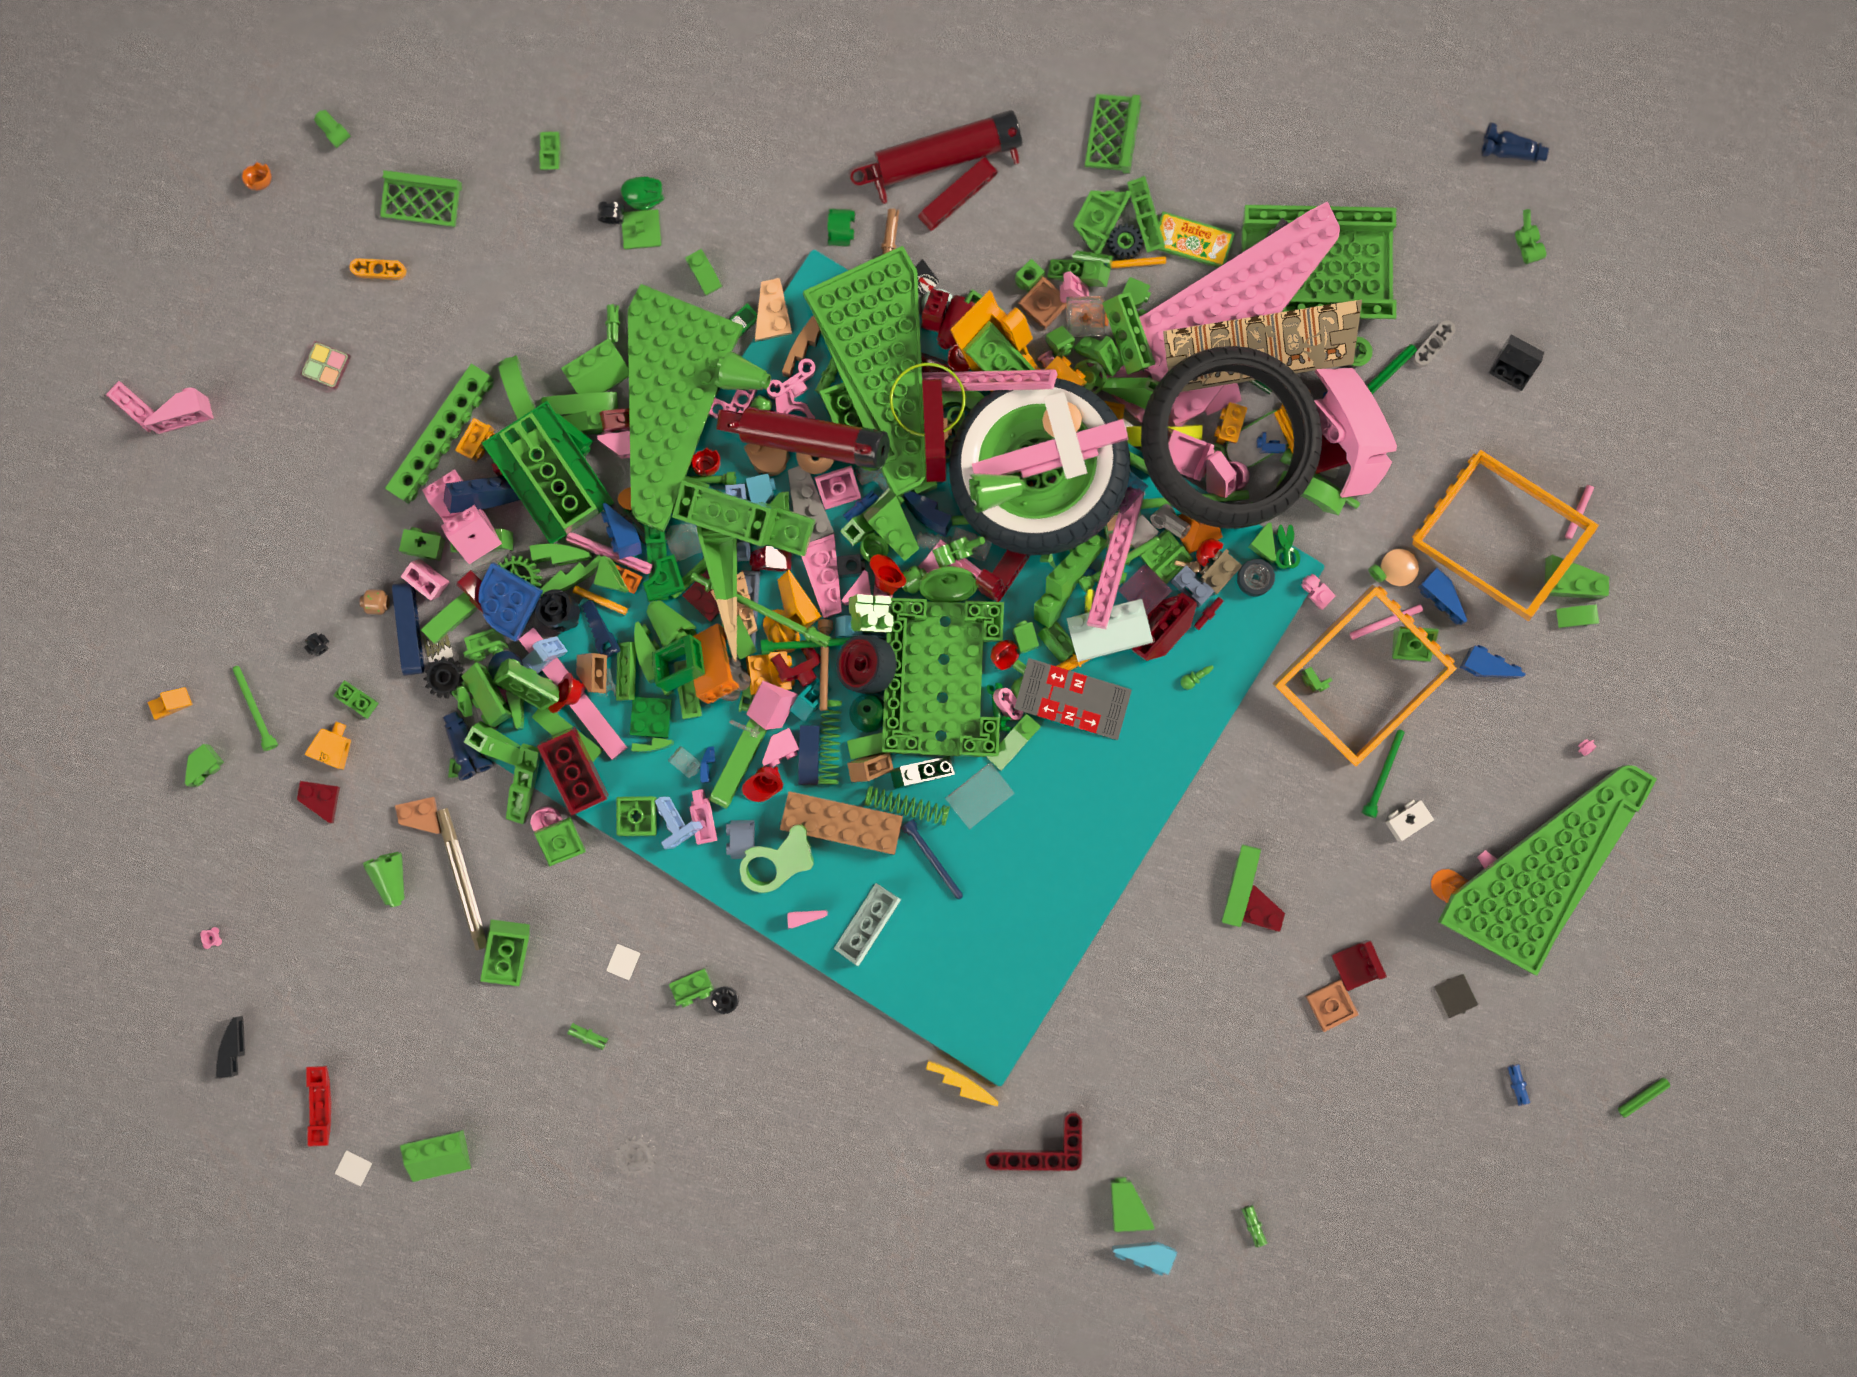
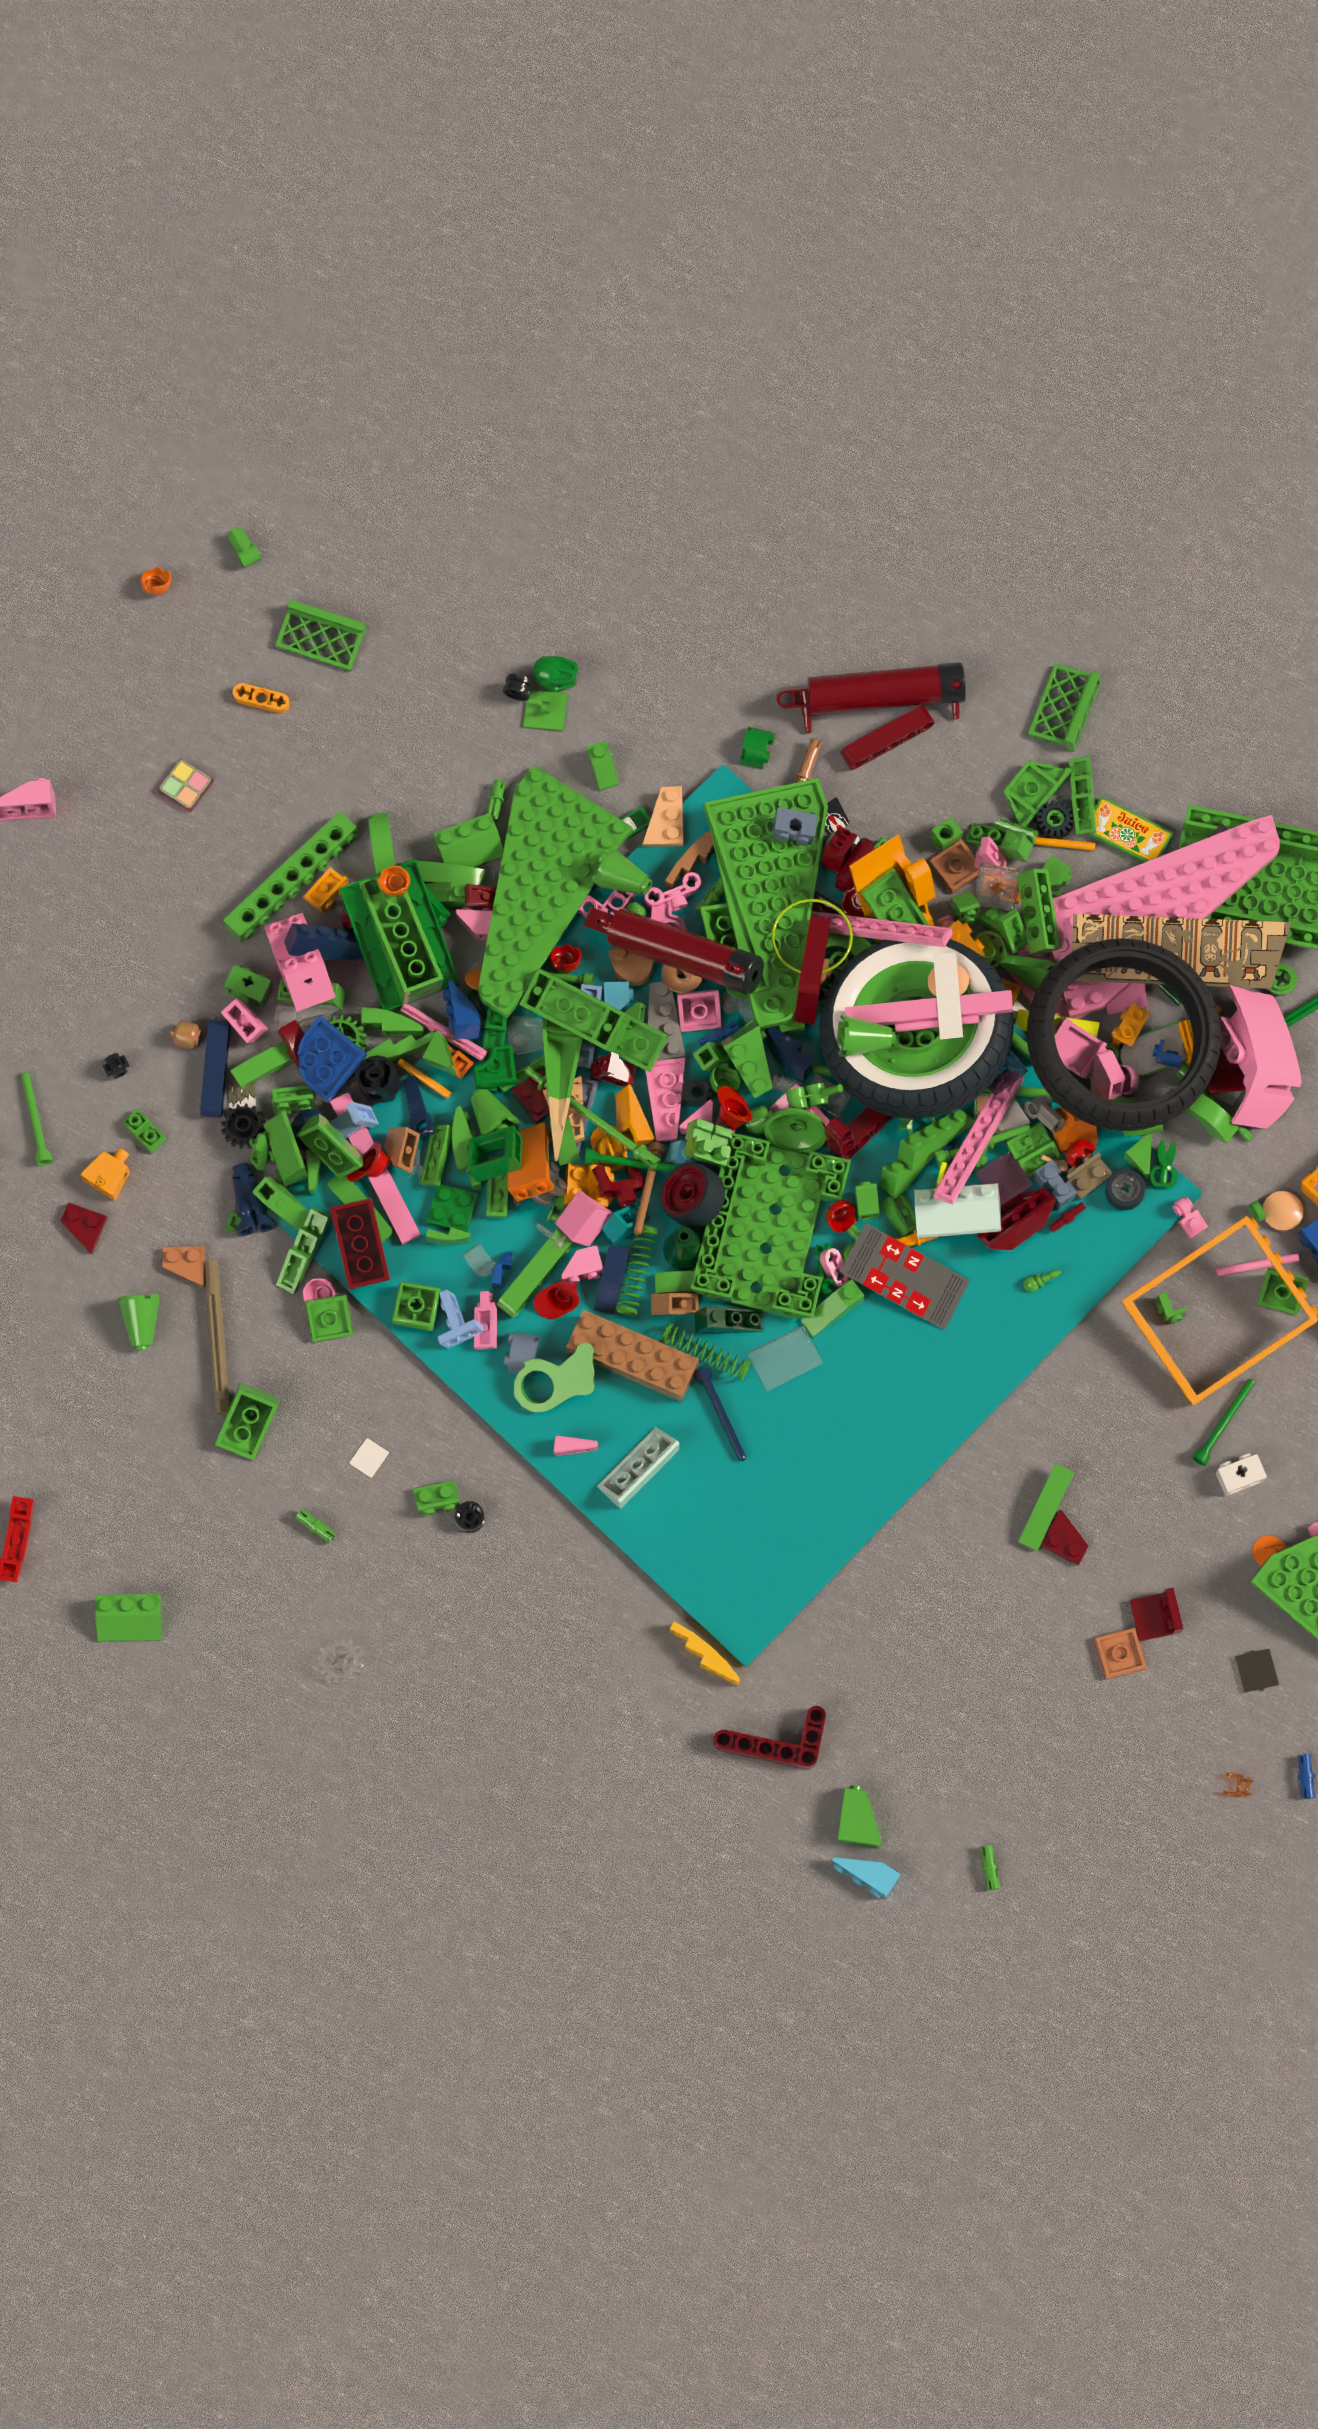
camera: 10 degrees right, 10 degrees down
(353, 1168) = (37, 1615): white sticker -> none
(530, 426) = (394, 881): none -> orange hair
(549, 150) = (466, 612): bright green slope -> none
(898, 291) = (803, 822): none -> sand blue brick
(1460, 1098) = (1237, 1793): none -> clear orange piece

